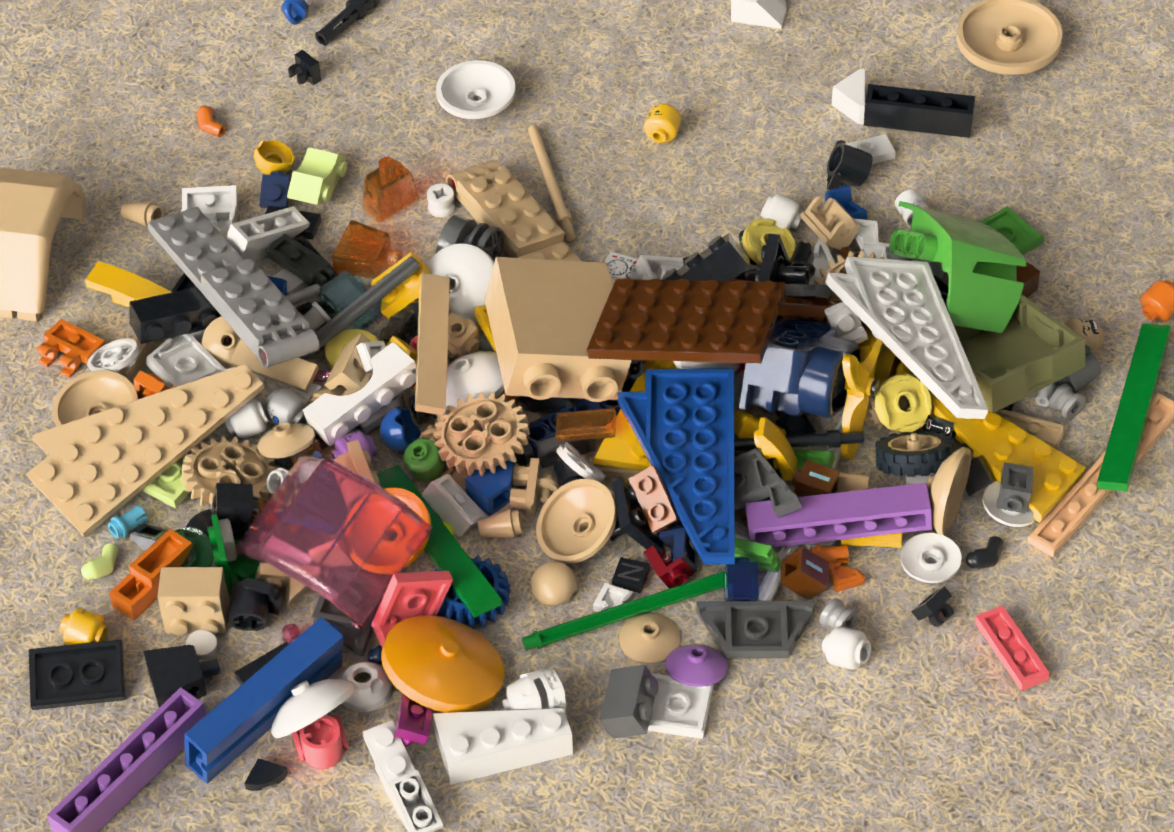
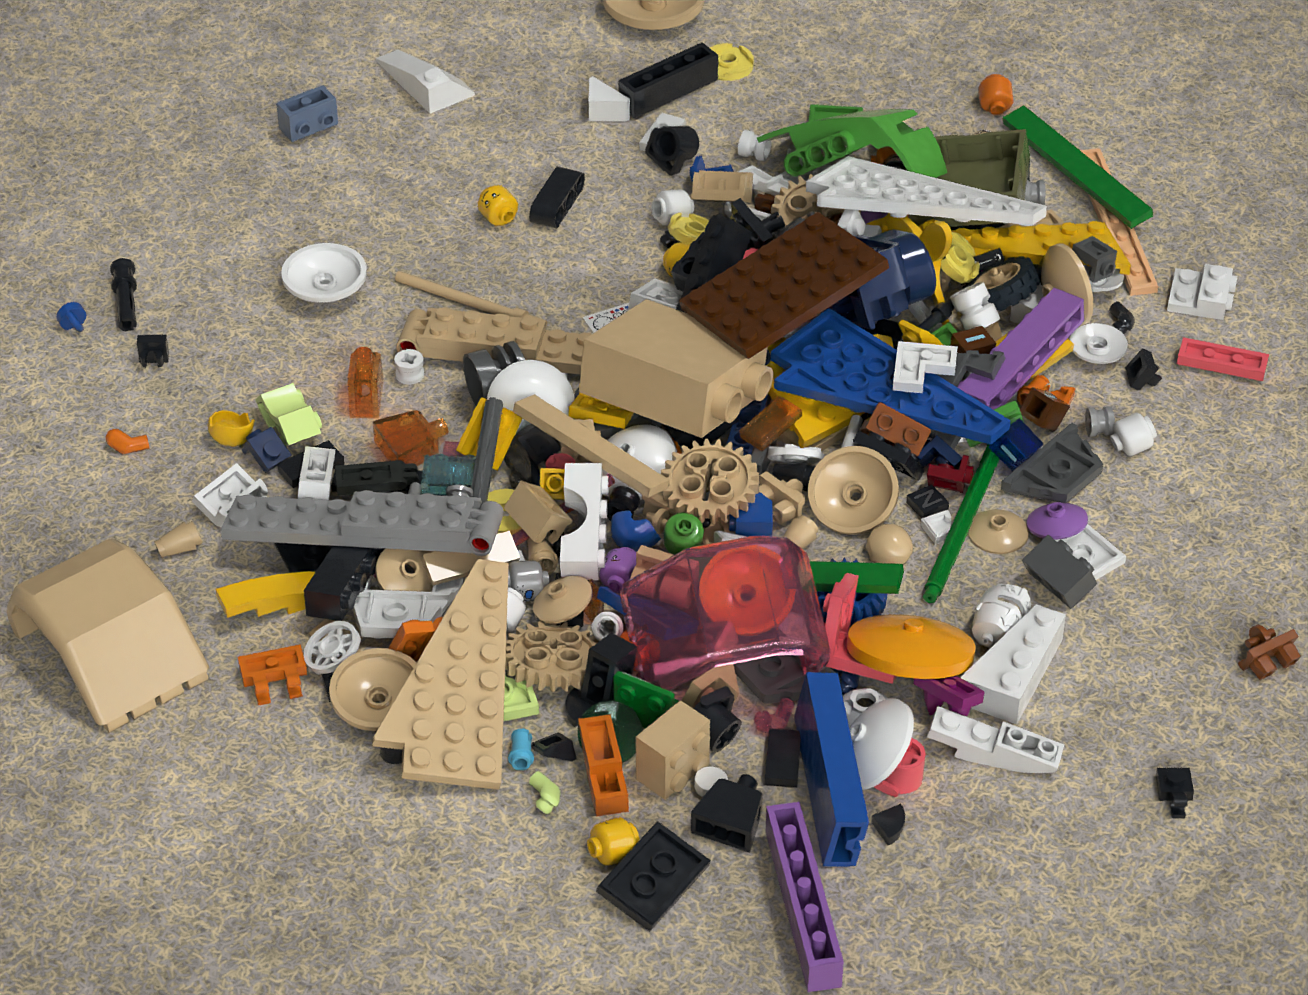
camera: 50 degrees left, 5 degrees down
(367, 351) = (549, 491): white tile -> none
(715, 146) = (557, 197): none -> black beam
(725, 455) = (919, 358): none -> white plate
(857, 464) = (974, 306): none -> white wheel
(999, 139) = (742, 61): none -> light yellow tile
(1082, 583) = (1203, 292): none -> white plate

